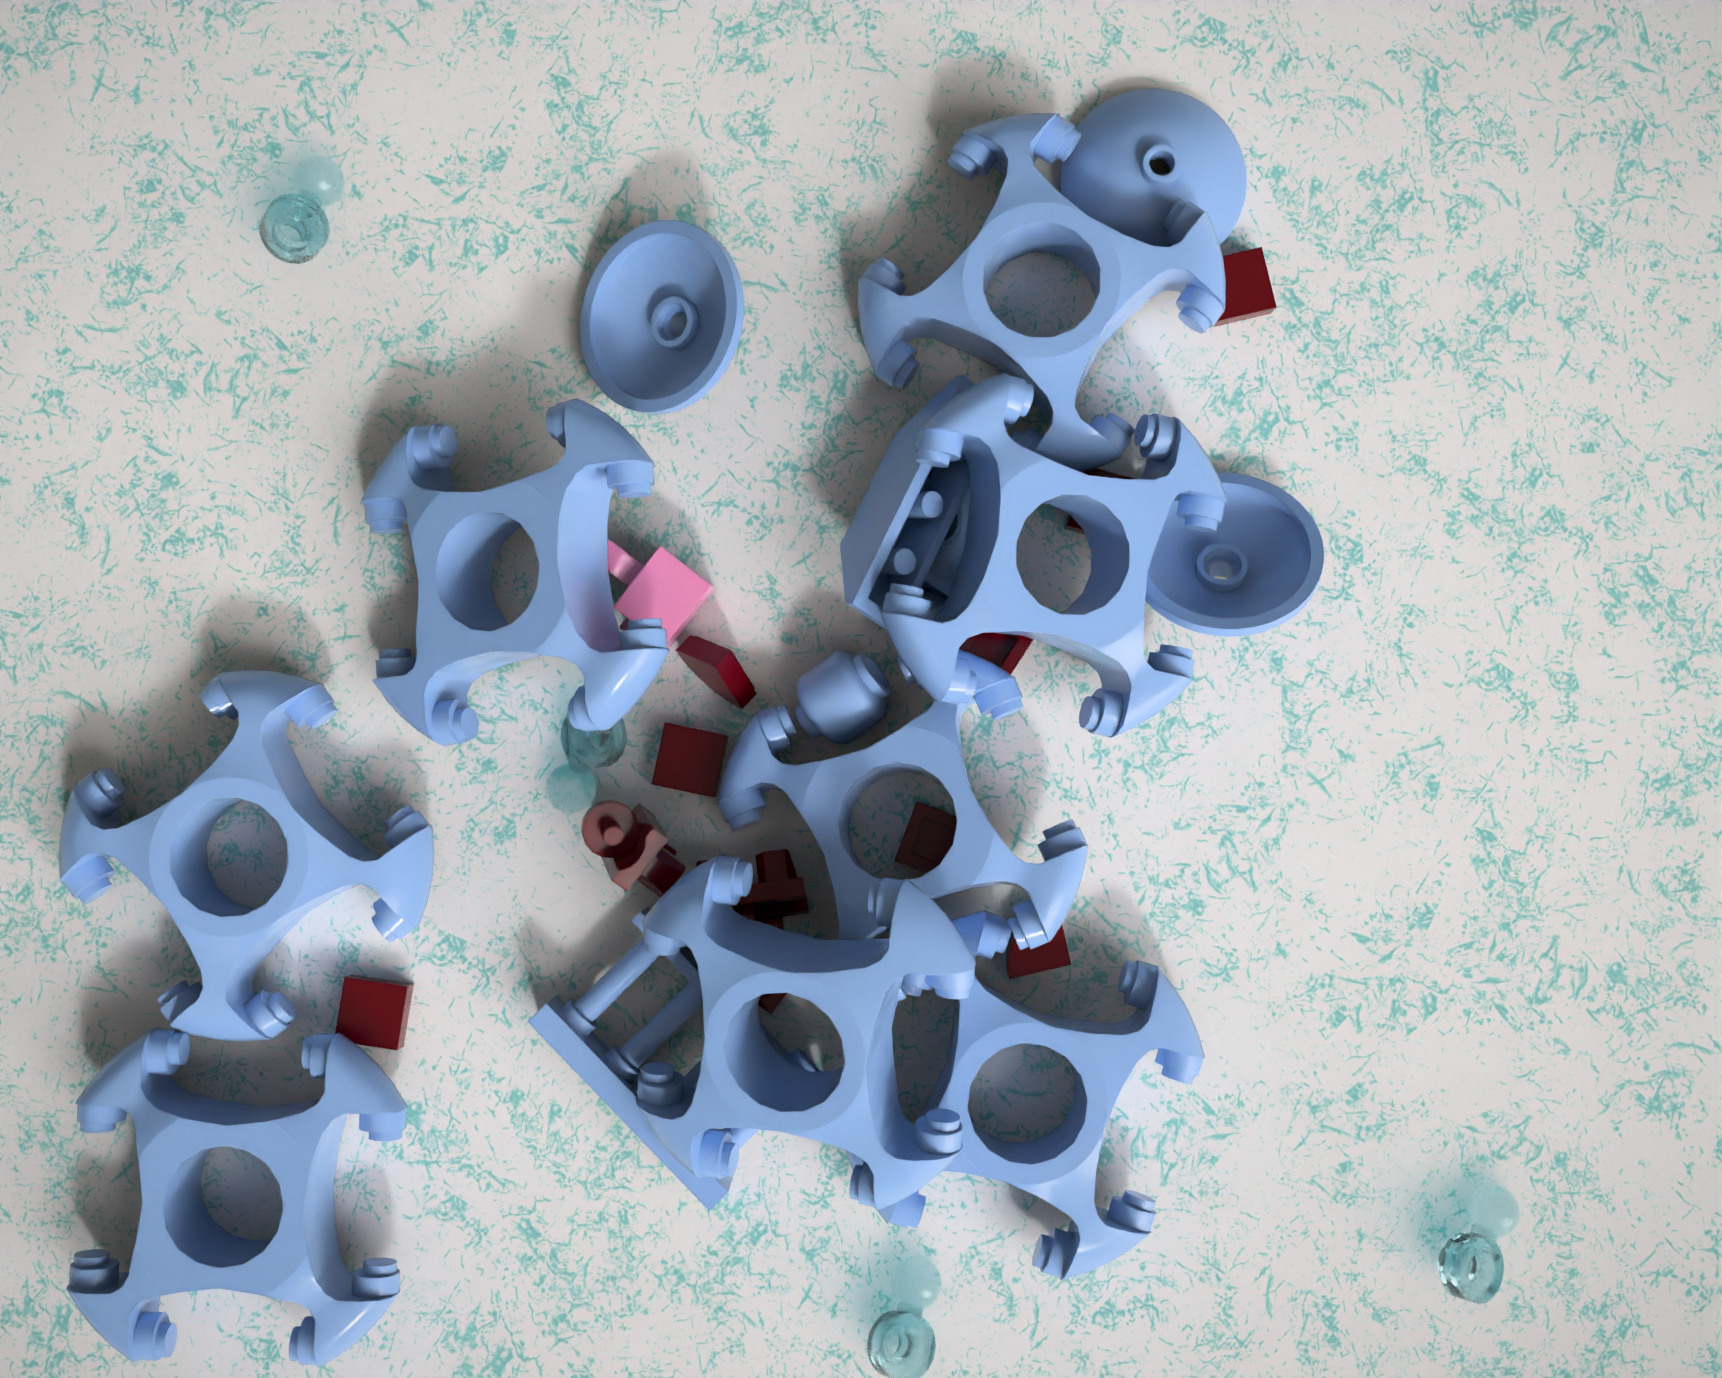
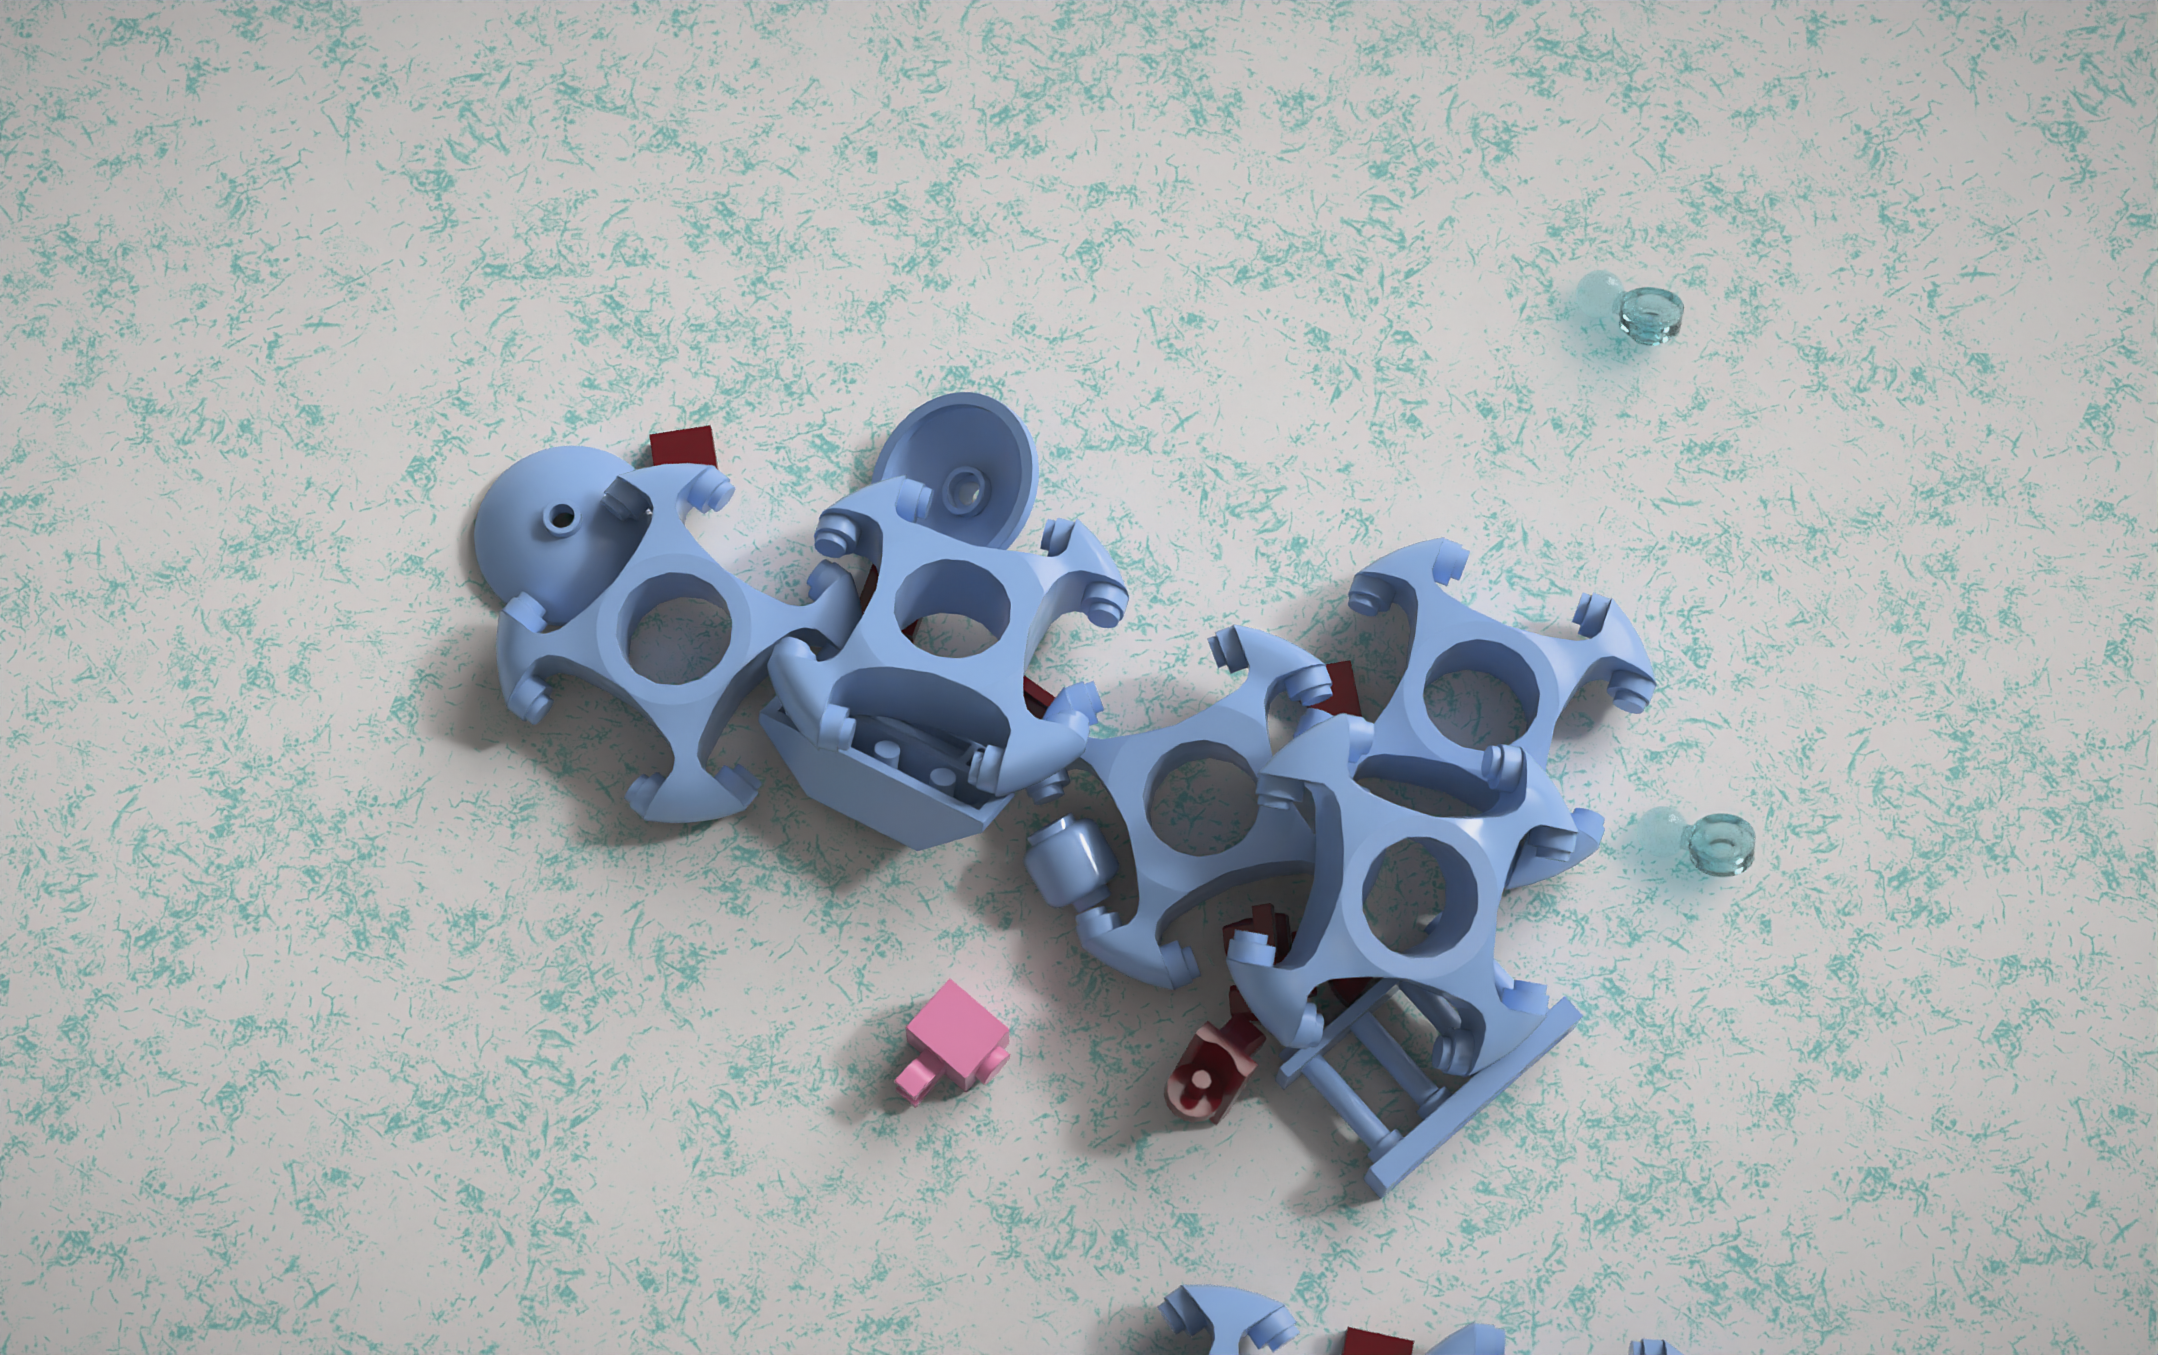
camera: 85 degrees left, 15 degrees down
(454, 555) = (879, 1239): light blue piece -> none
(572, 784) = (1145, 1146): clear light blue plate -> none
(638, 314) = (662, 1054): light blue dish -> none
(690, 760) = (1125, 1024): dark red tile -> none
(718, 670) = (1034, 989): dark red tile -> none
(926, 838) = (1219, 791): dark red tile -> none

